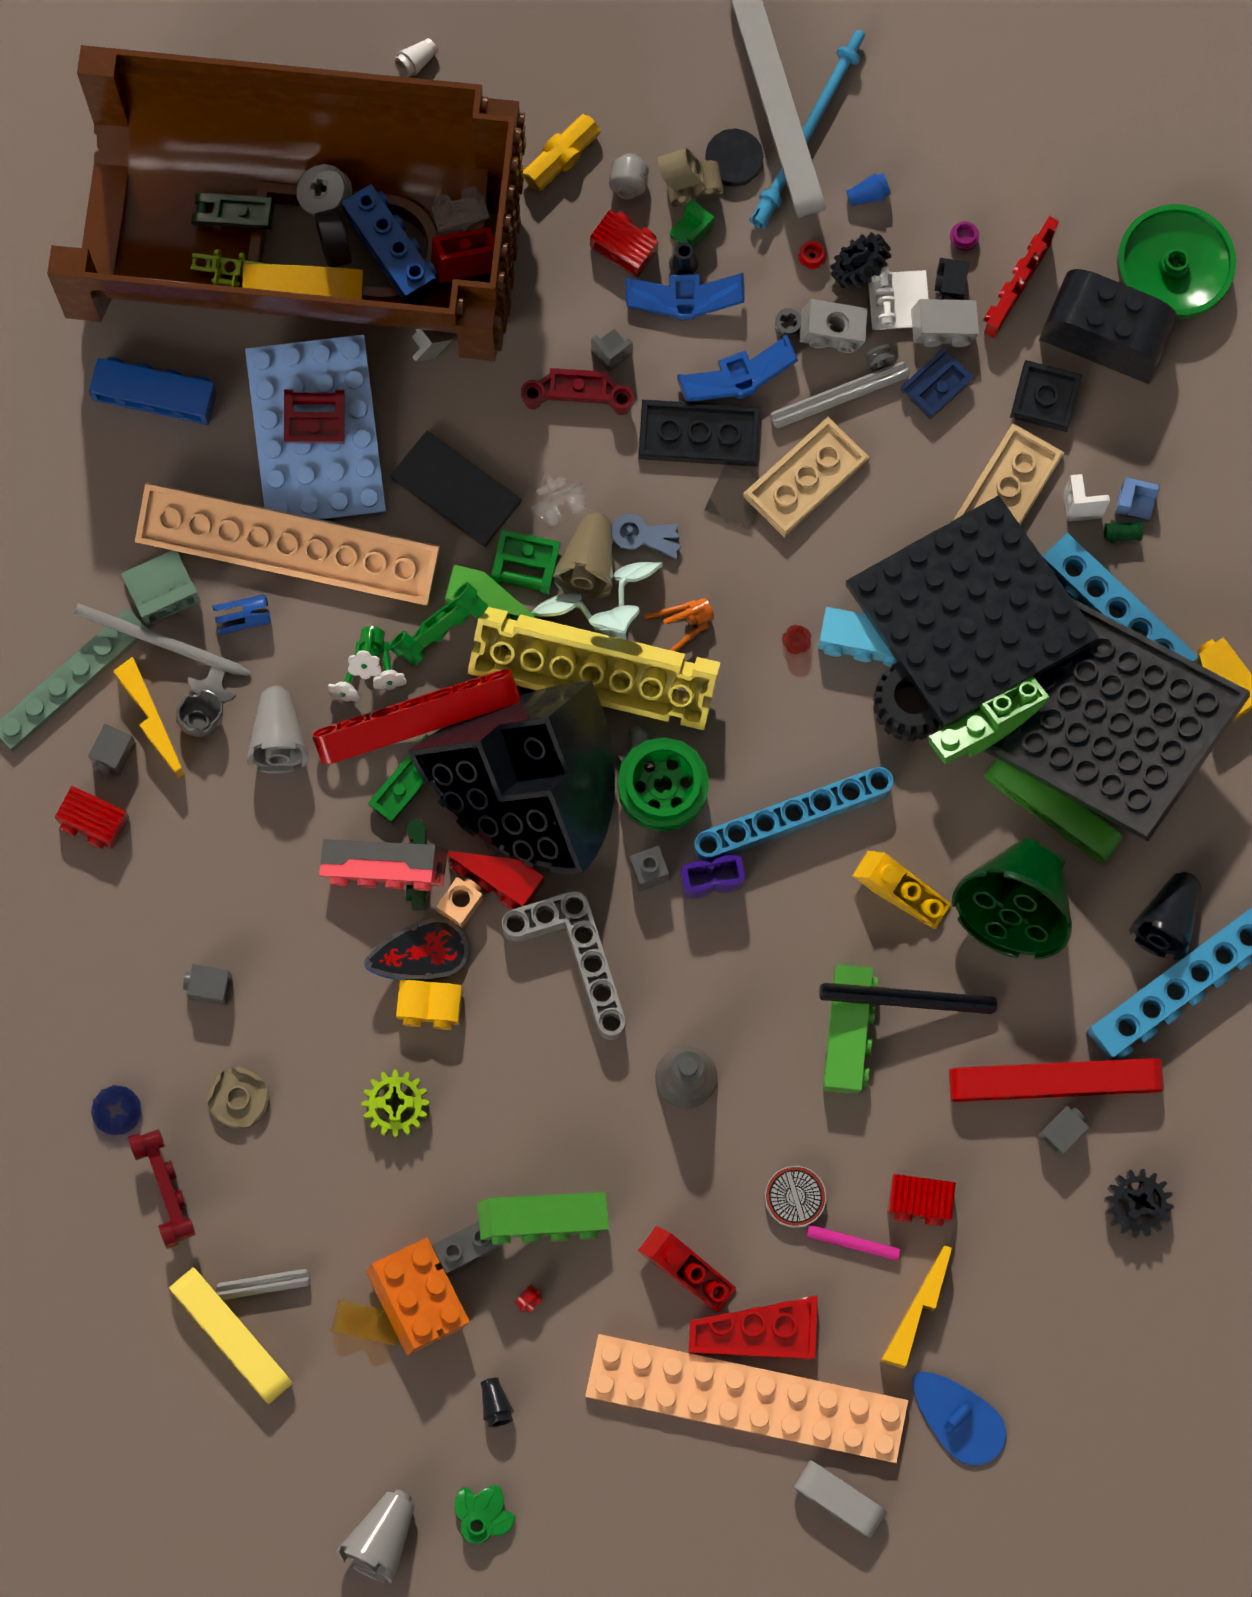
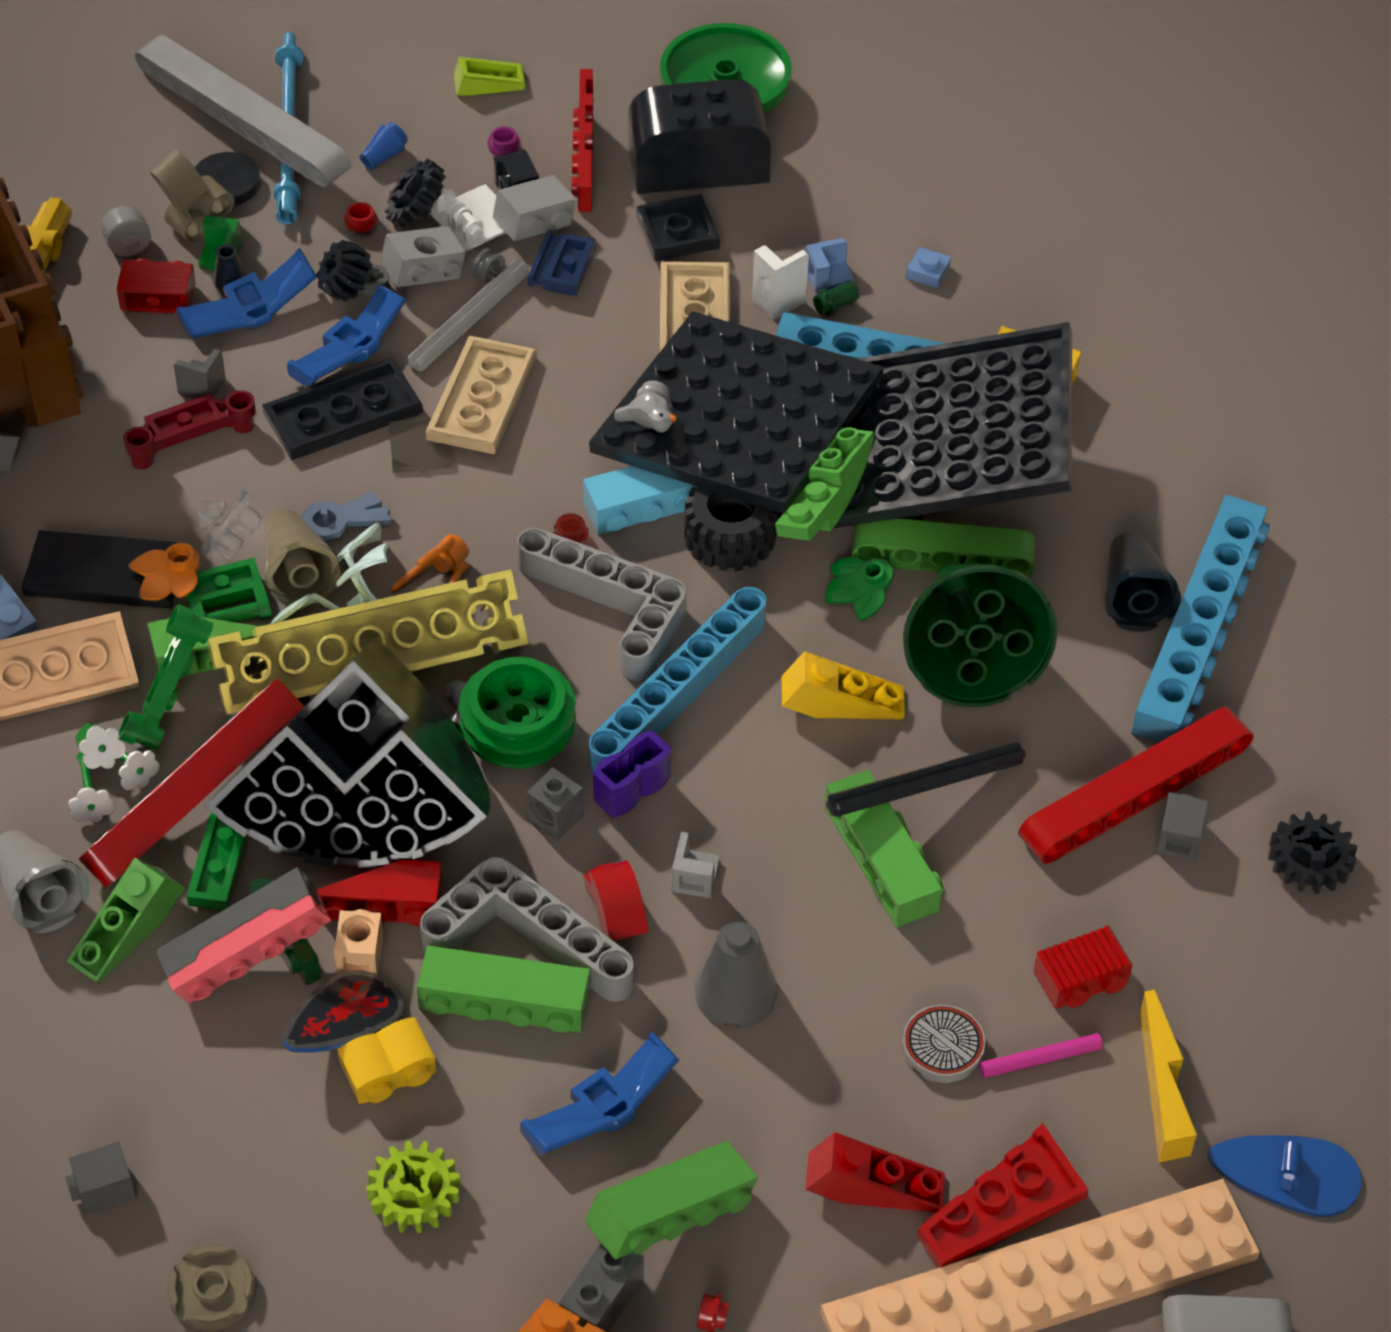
camera: 30 degrees left, 25 degrees down
(321, 796) = (125, 919): none -> bright green slope
(489, 524) = (167, 571): none -> orange plate
(533, 993) = (503, 989): none -> bright green brick
(550, 1113) = (602, 1100): none -> blue plate
(644, 968) = (617, 900): none -> red brick
(714, 970) = (693, 870): none -> light grey panel
(766, 308) = (344, 270): none -> black gear
(795, 711) = (647, 594): none -> light grey beam
(900, 585) = (649, 408): none -> light grey animal
(969, 802) = (856, 585): none -> green plate
(989, 167) = (487, 76): none -> lime slope
(1215, 538) = (928, 267): none -> medium blue plate

